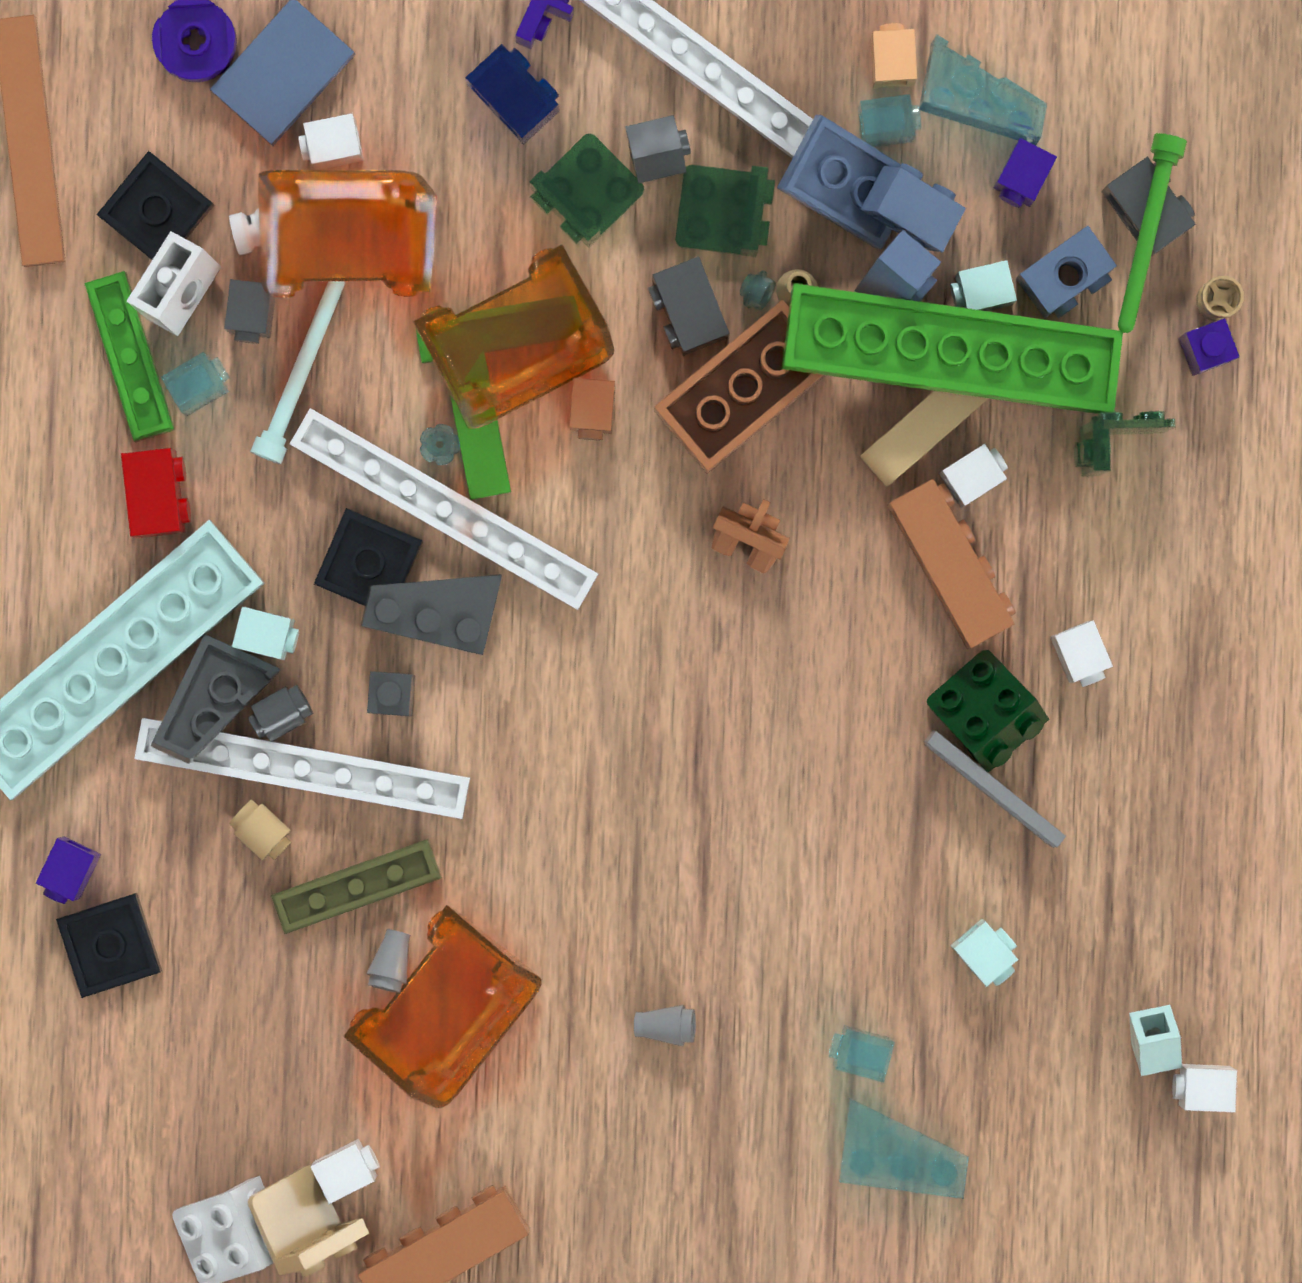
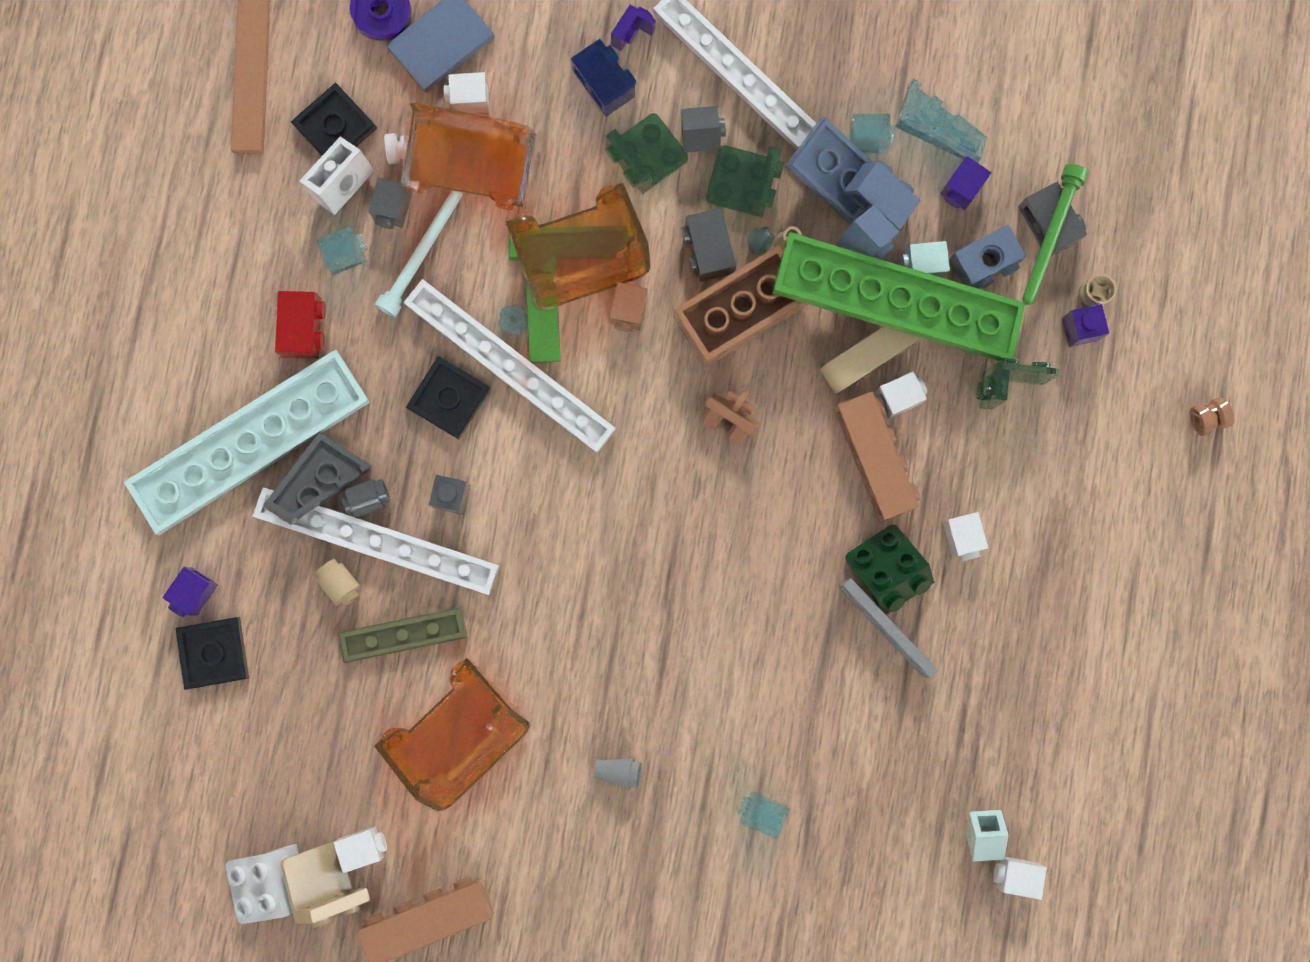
camera: 10 degrees right, 5 degrees down
(129, 357) = (298, 227): bright green tile -> none
(265, 633) = (364, 438): light aqua brick -> none
(390, 963) = (419, 695): light grey cone -> none
(436, 611) = (492, 439): dark grey wing -> none
(893, 56) = (880, 89): light nougat brick -> none
(898, 1157) = (780, 898): clear light blue wing -> none
(987, 953) = (867, 751): light aqua brick -> none

